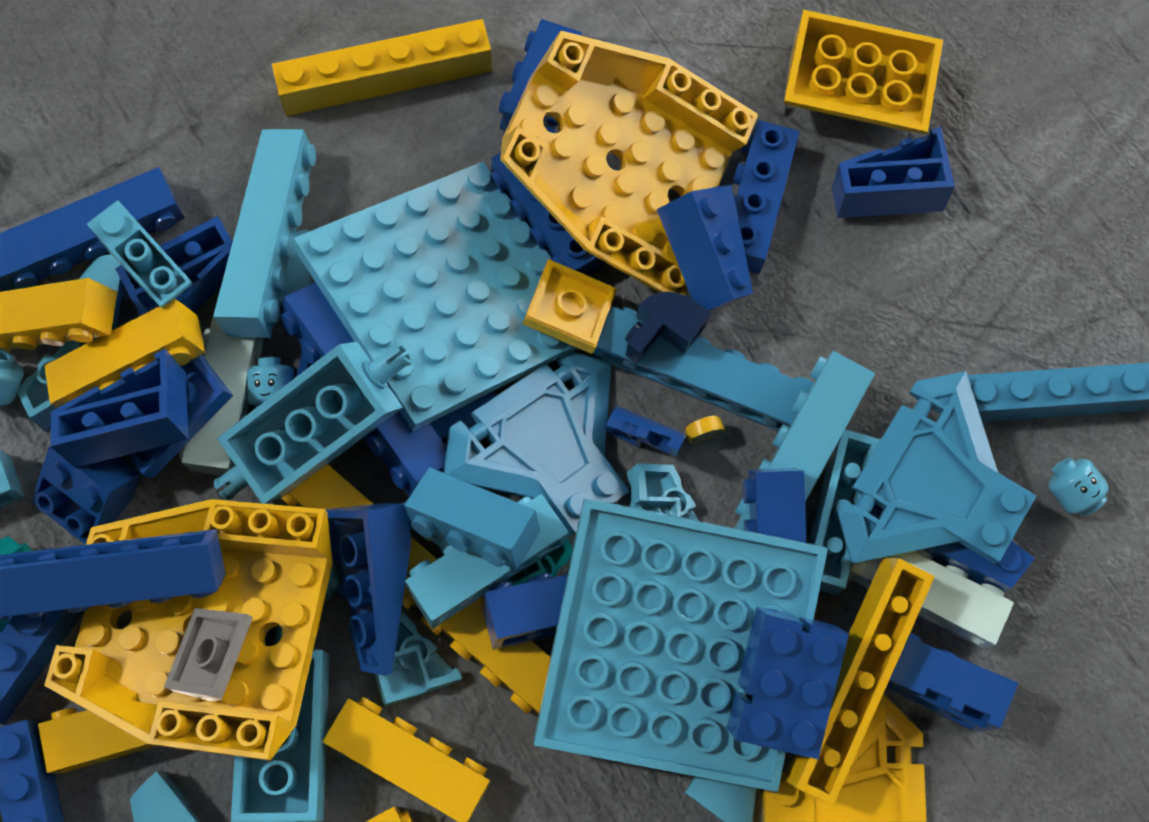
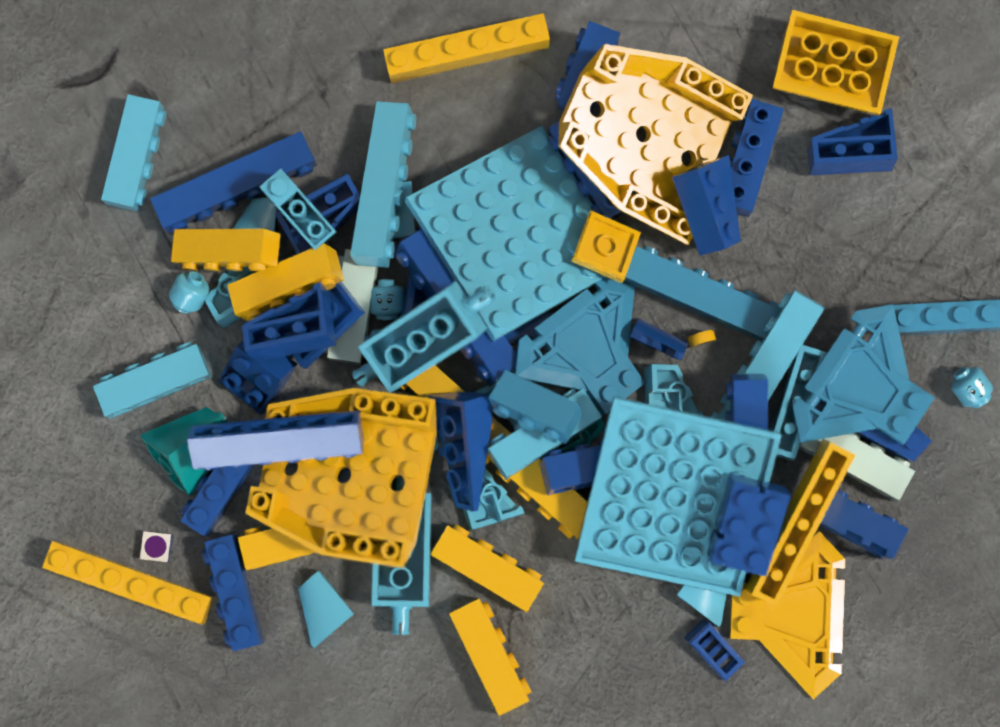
camera: 10 degrees right, 10 degrees up
(208, 653) = (357, 495): light grey slope -> none
(669, 316) = (678, 257): dark blue brick -> none

